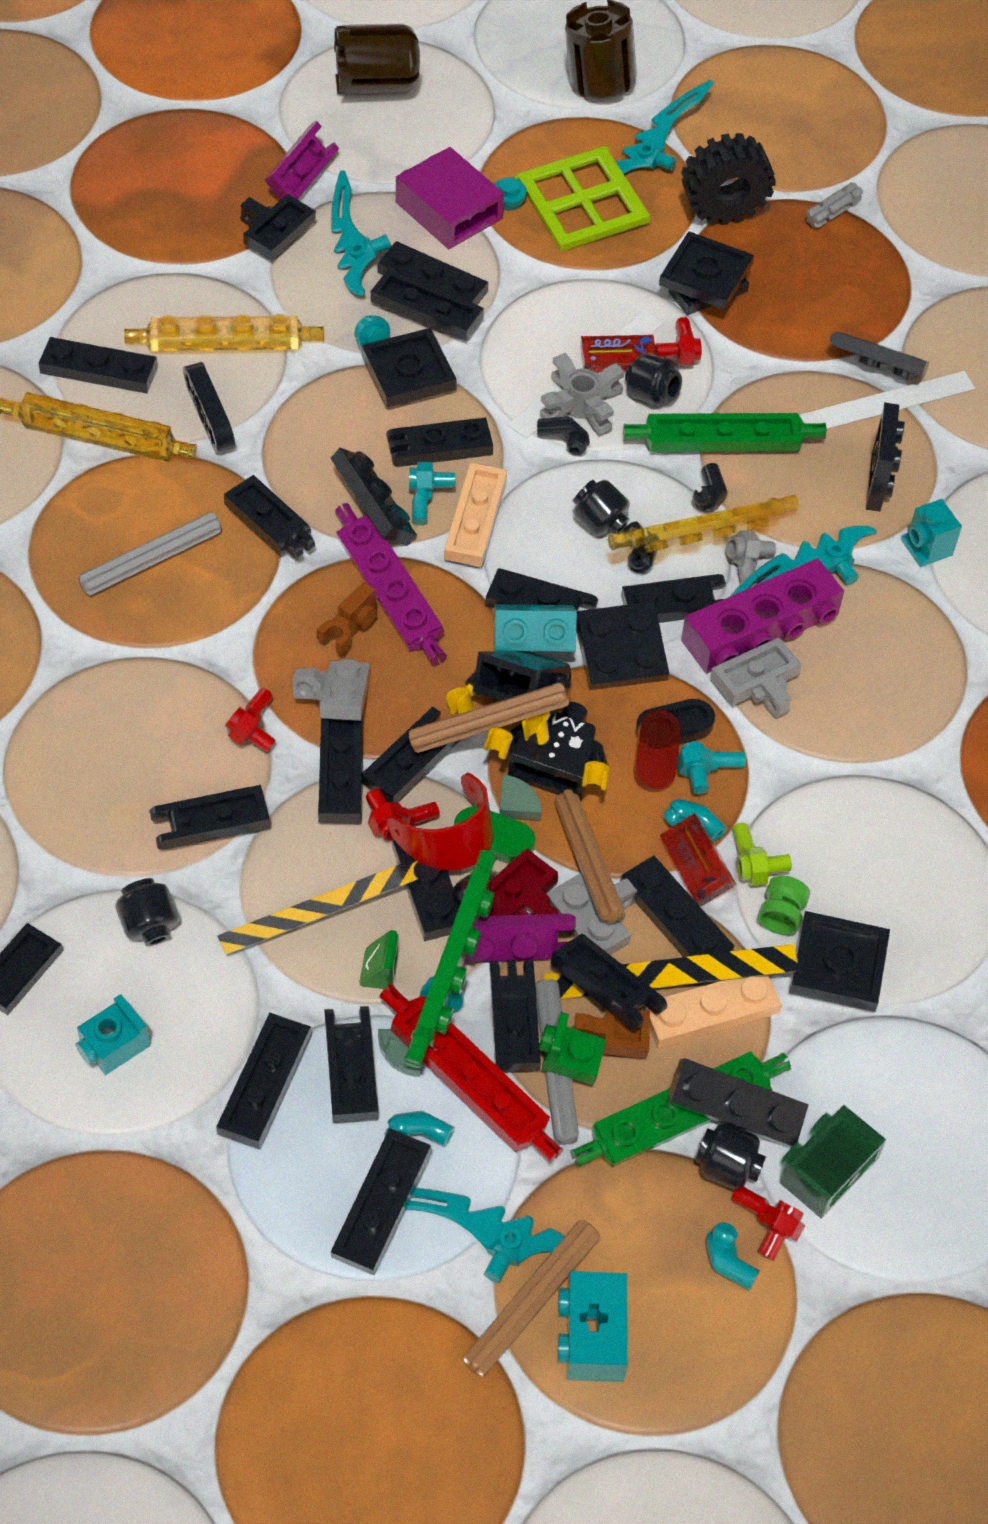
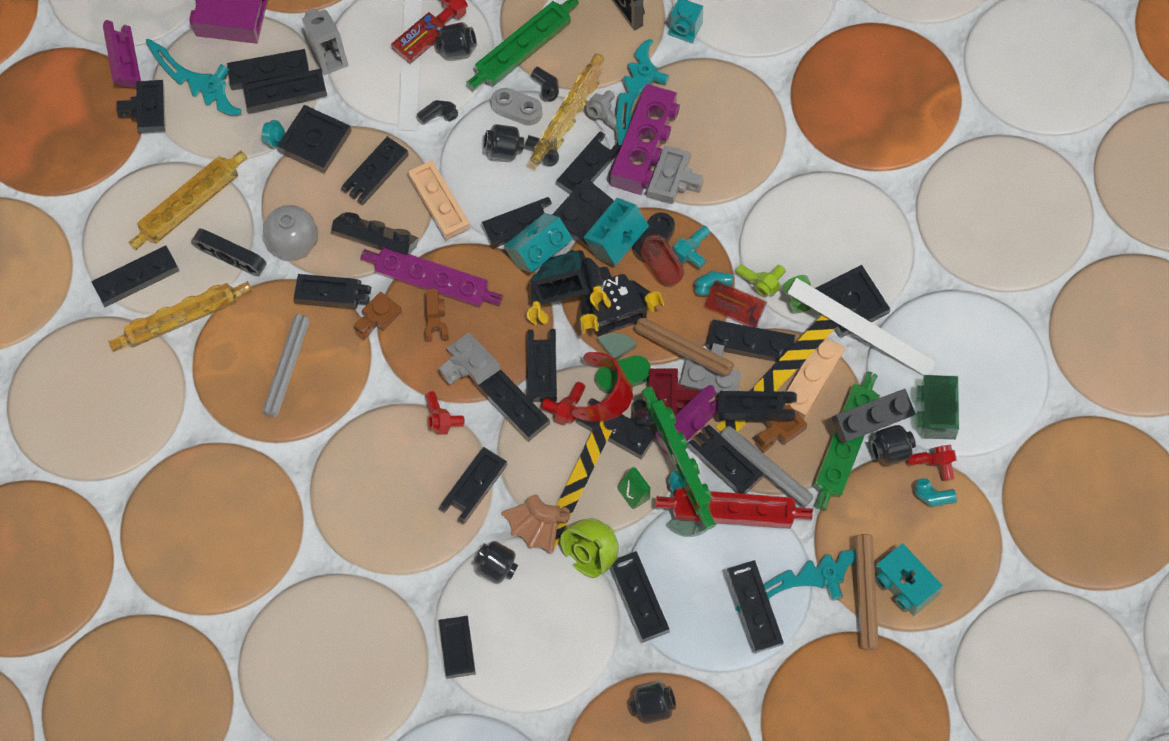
camera: 35 degrees left, 10 degrees up
(112, 1050) = (544, 627): teal brick -> none
(156, 1207) = (653, 702): none -> black head
(236, 908) = (536, 522): none -> nougat arm
(267, 977) = (591, 546): none -> lime cylinder
(290, 433) = (290, 232): none -> light grey cylinder
(297, 576) = (377, 313): none -> dark orange plate
(351, 1068) = (674, 554): black hinge -> none
(422, 1123) = (733, 553): teal arm -> none
(423, 481) = (391, 202): teal piece -> none
(488, 717) = (572, 314): medium nougat axle -> none
(516, 272) = (321, 28): none -> light grey torso
(571, 1051) = (773, 456): green bracket -> none
(582, 393) = (426, 71): light grey pin -> none
(631, 679) = (616, 231): none -> teal brick
(650, 482) = (515, 106): none -> light grey plate
(822, 998) = (861, 327): none -> white sticker

